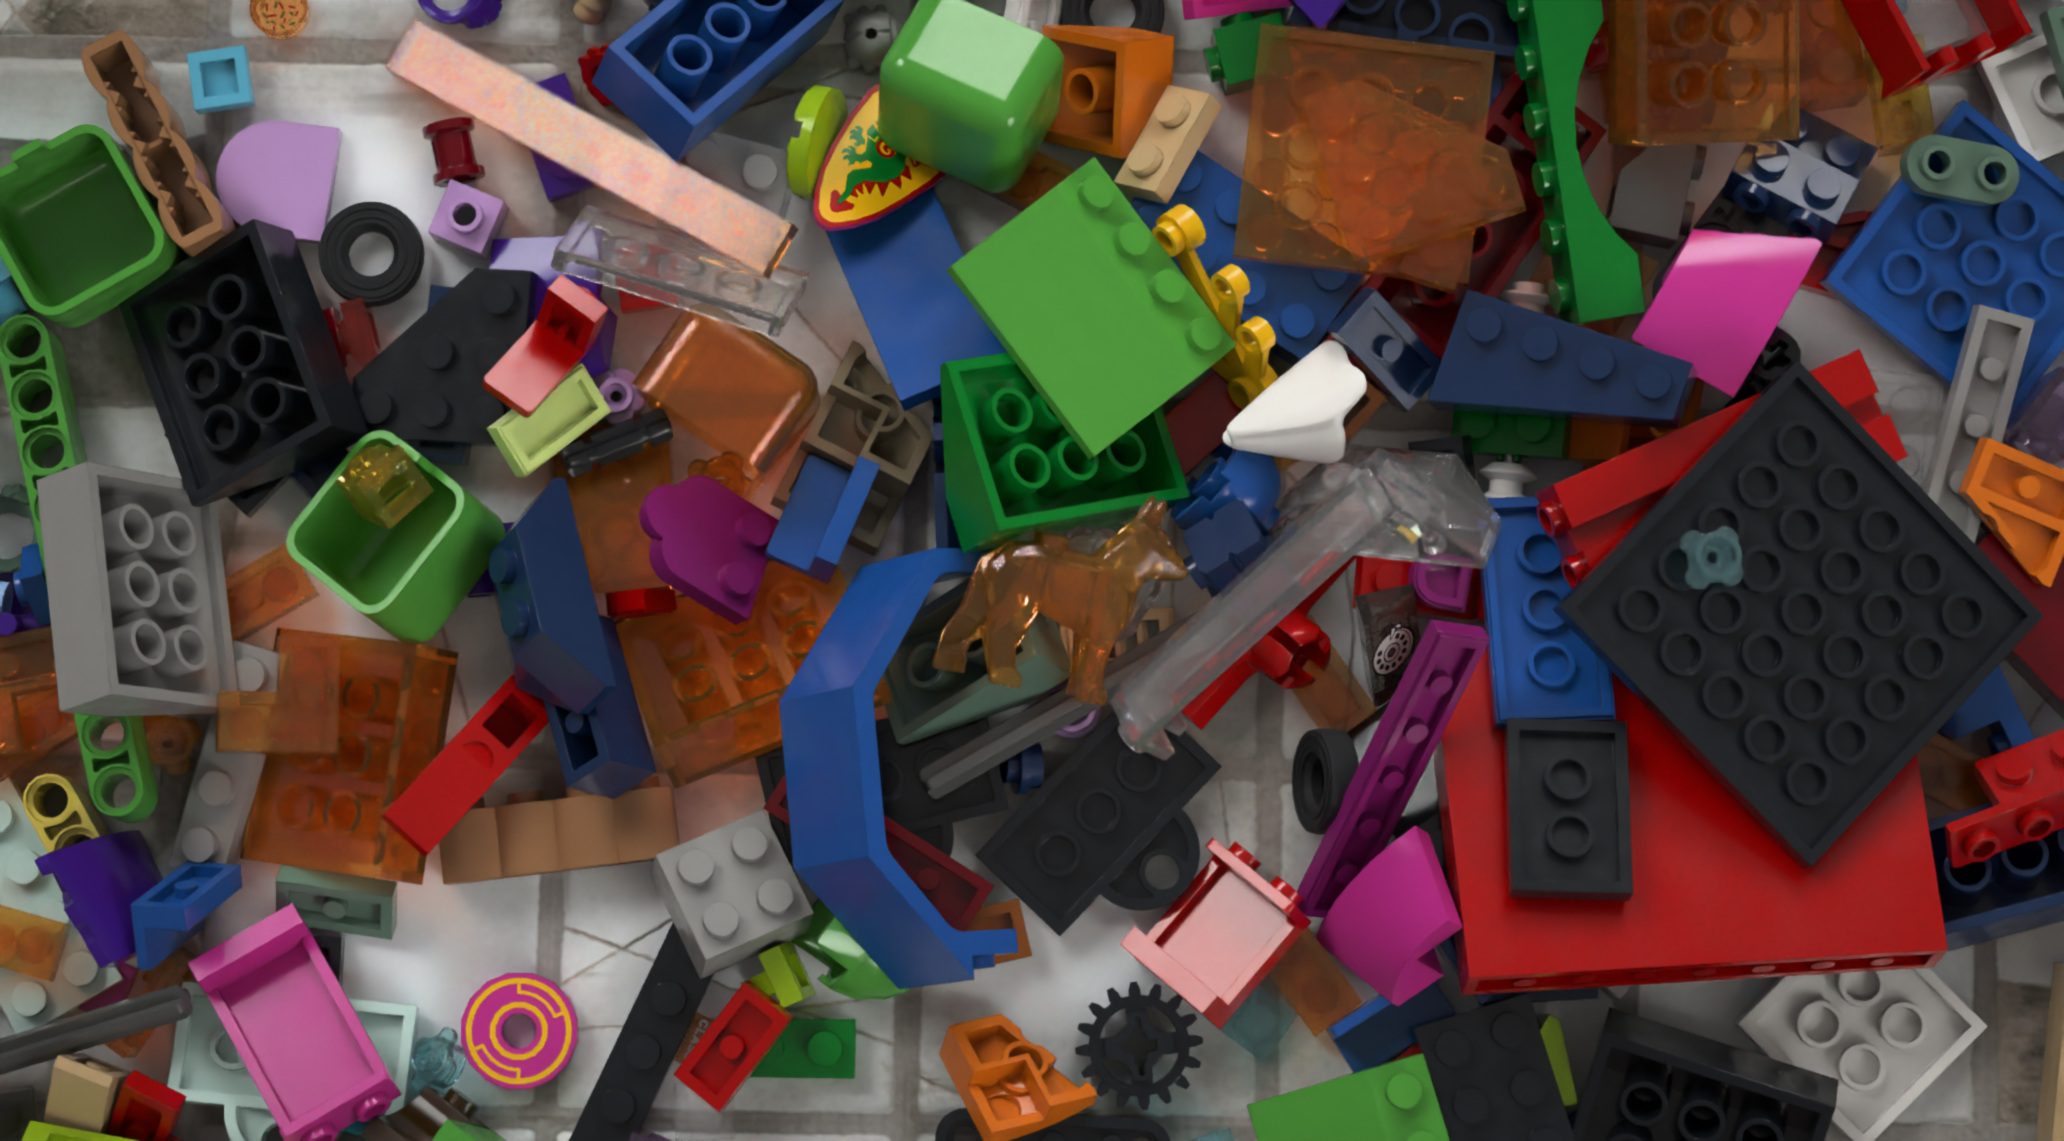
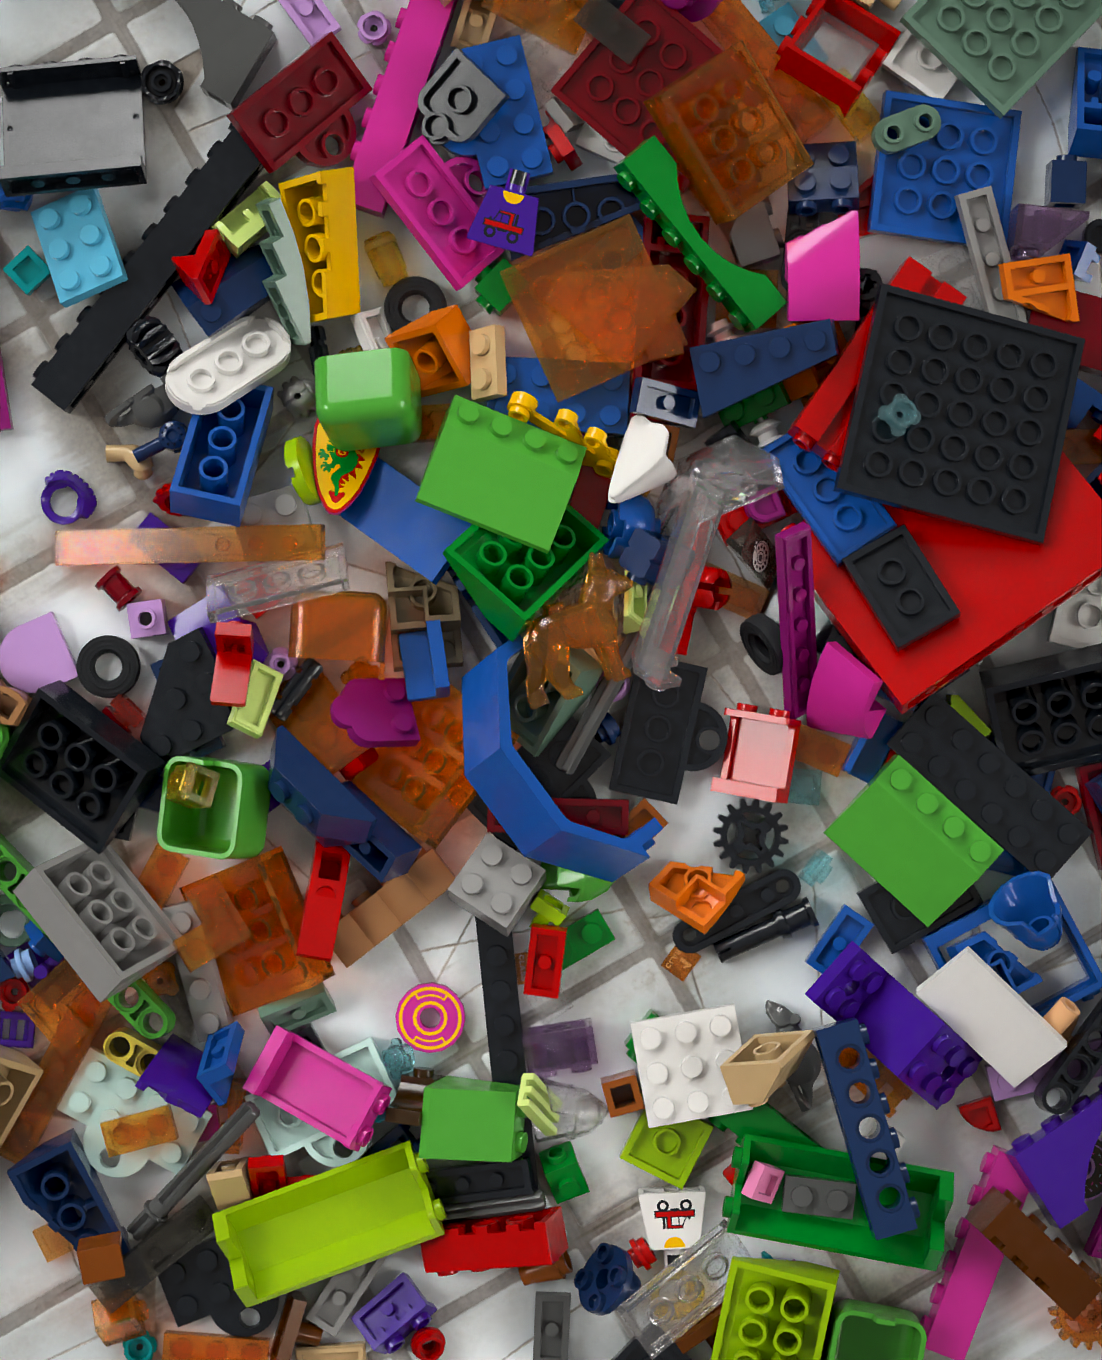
camera: 30 degrees left, 5 degrees up
(1168, 612) = (634, 607): none -> yellowish green slope

